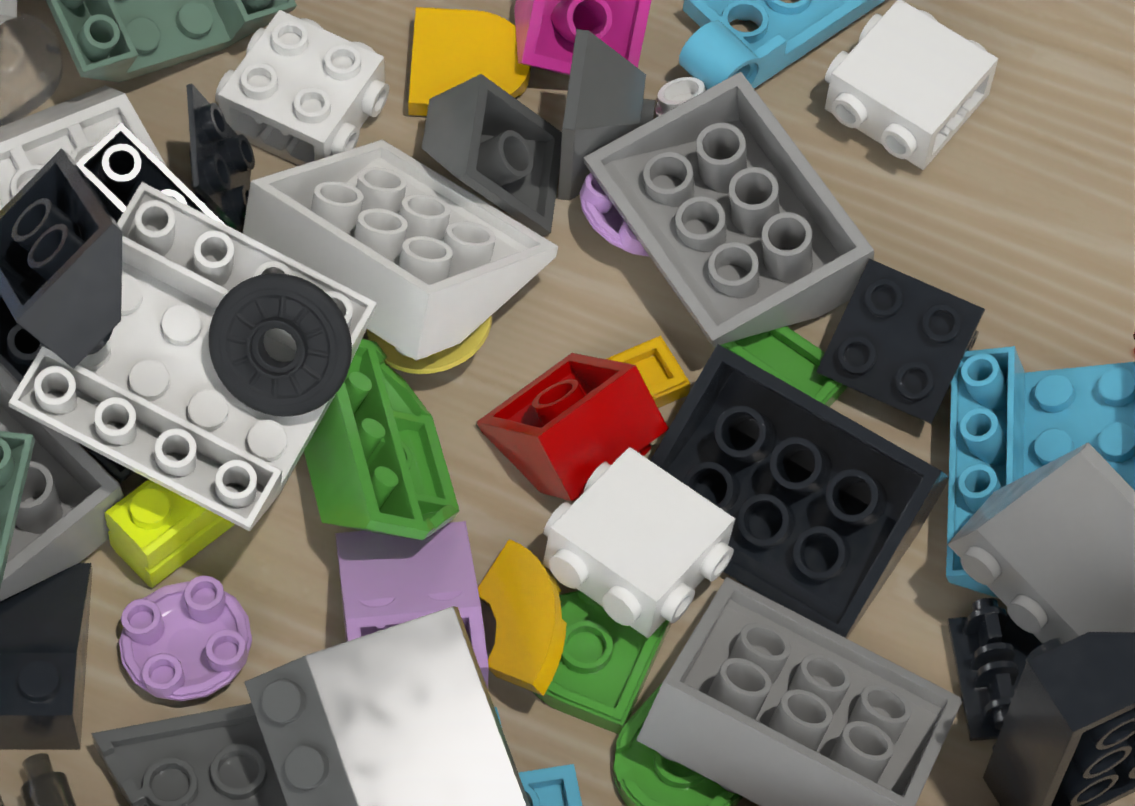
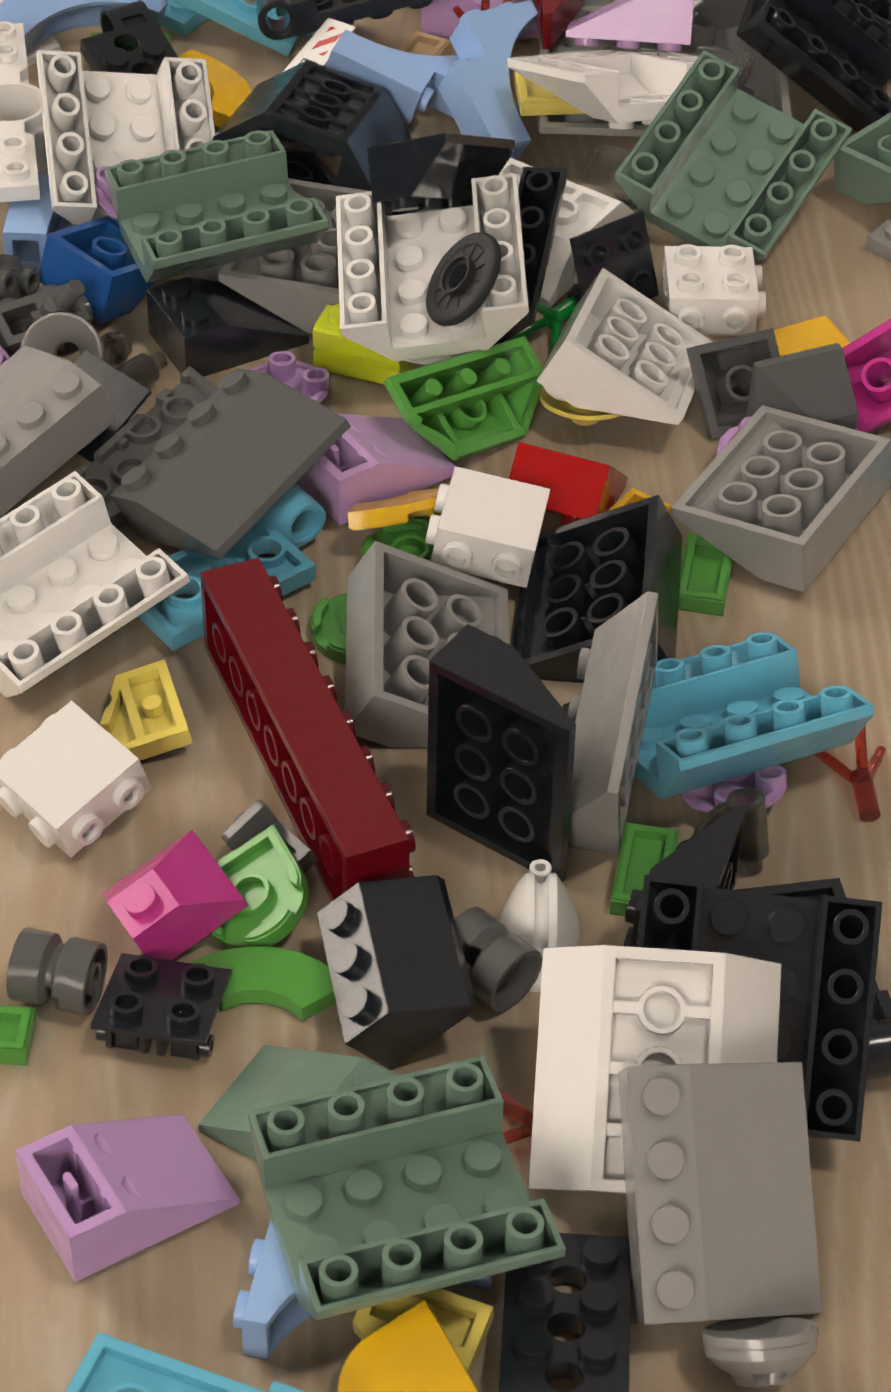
camera: 65 degrees right, 15 degrees down
(901, 341) = (758, 600): black hinge -> none

